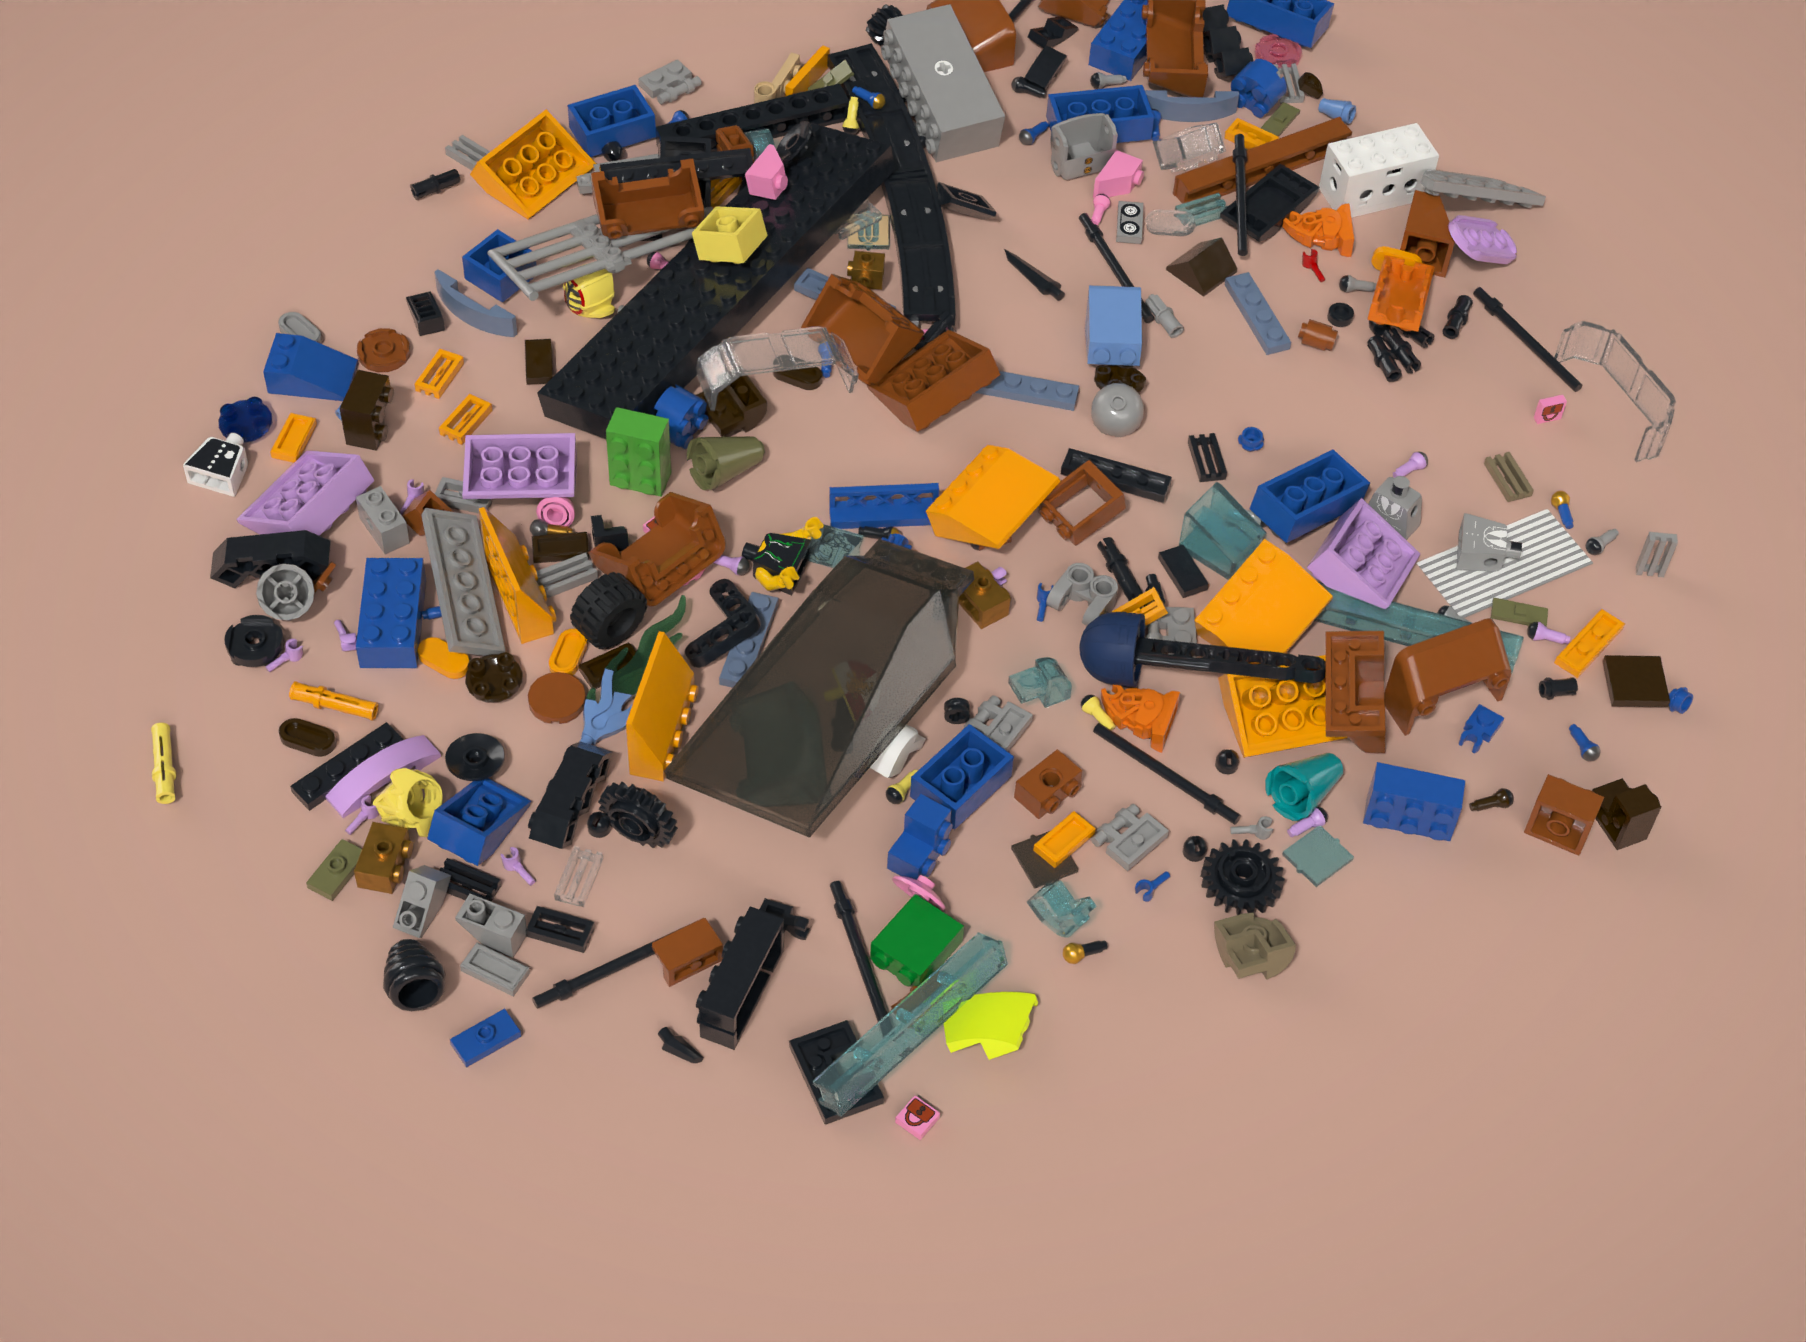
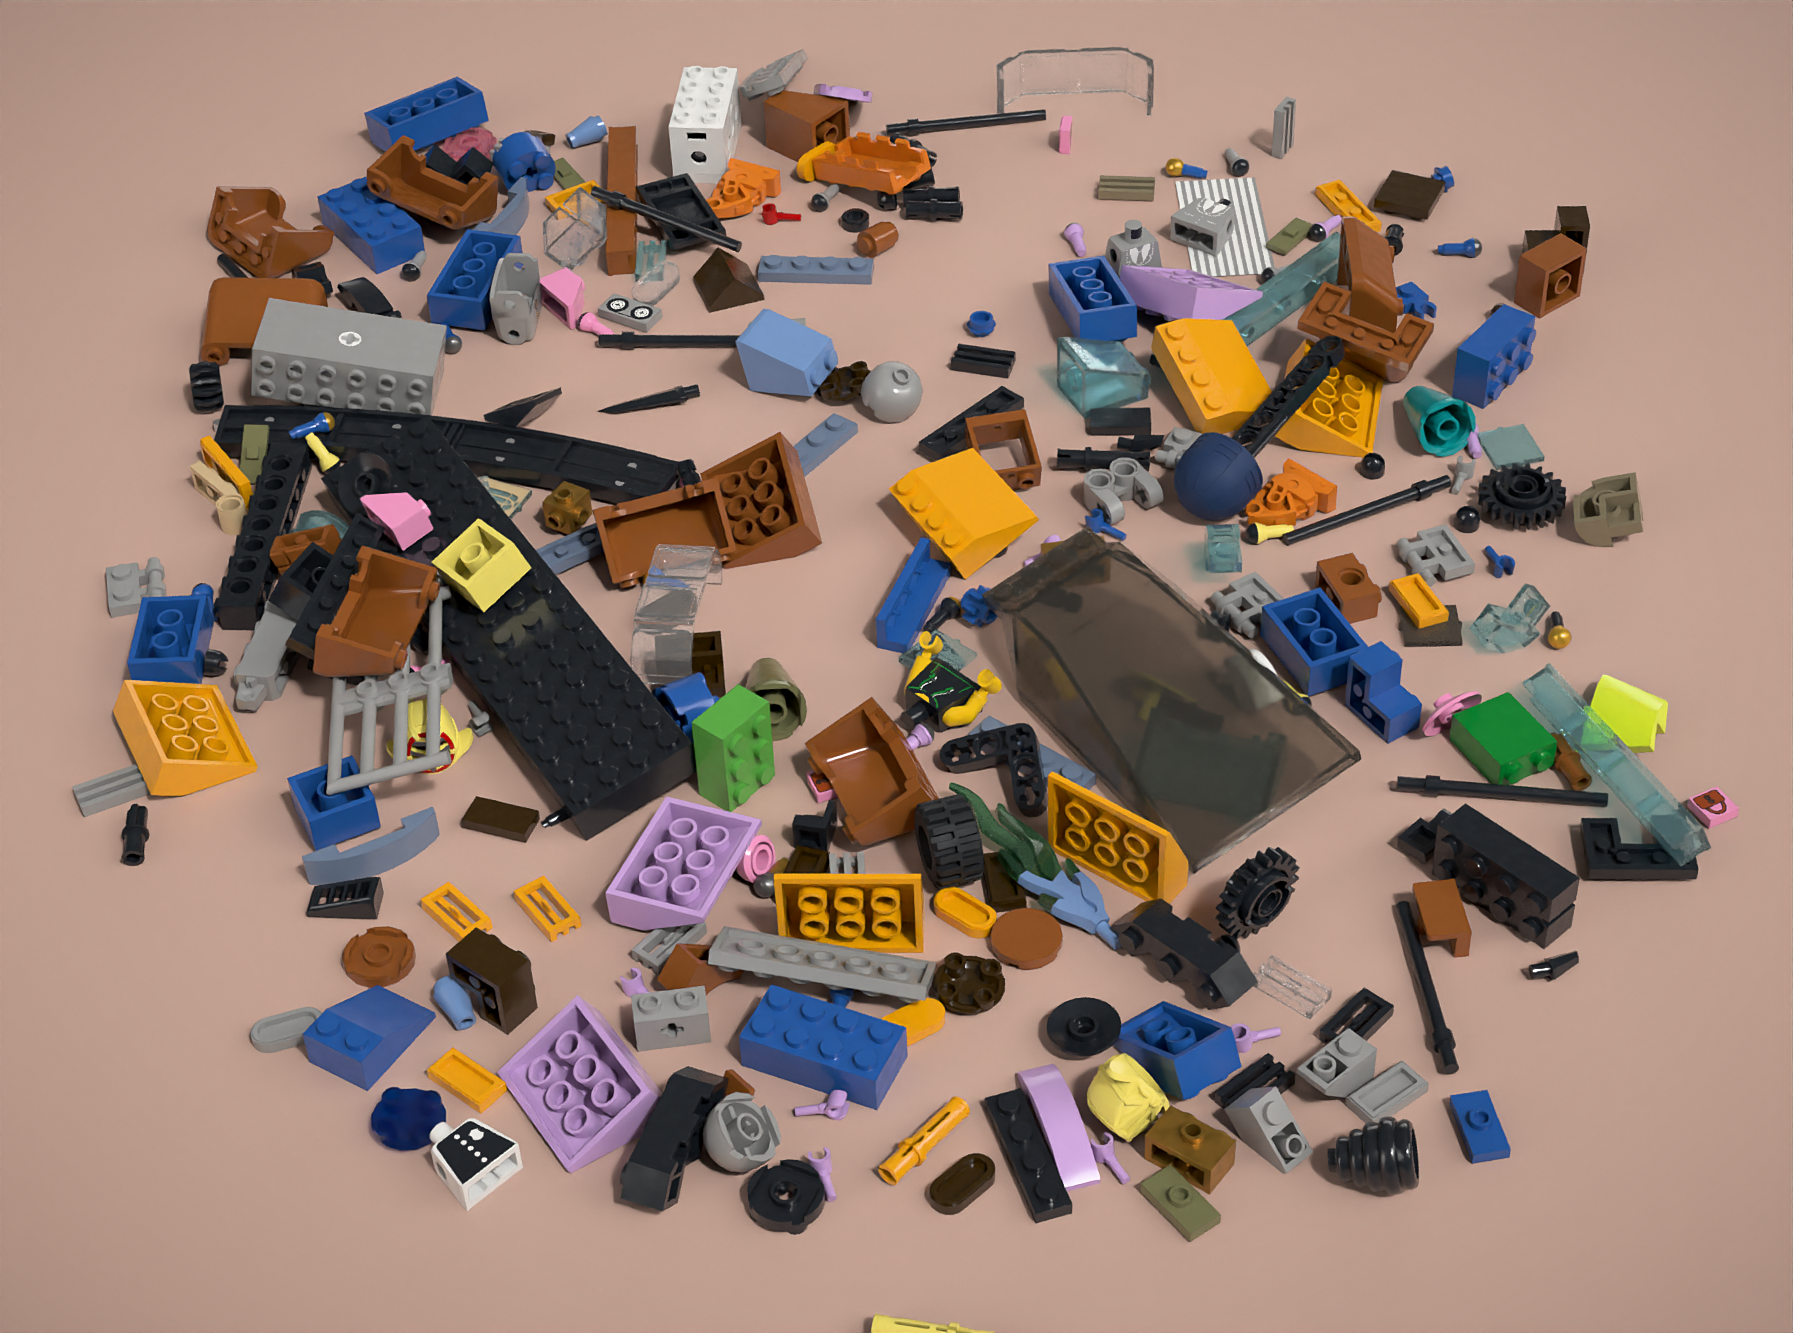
camera: 60 degrees left, 10 degrees down
(1151, 612) = (1167, 436): light orange tile -> none

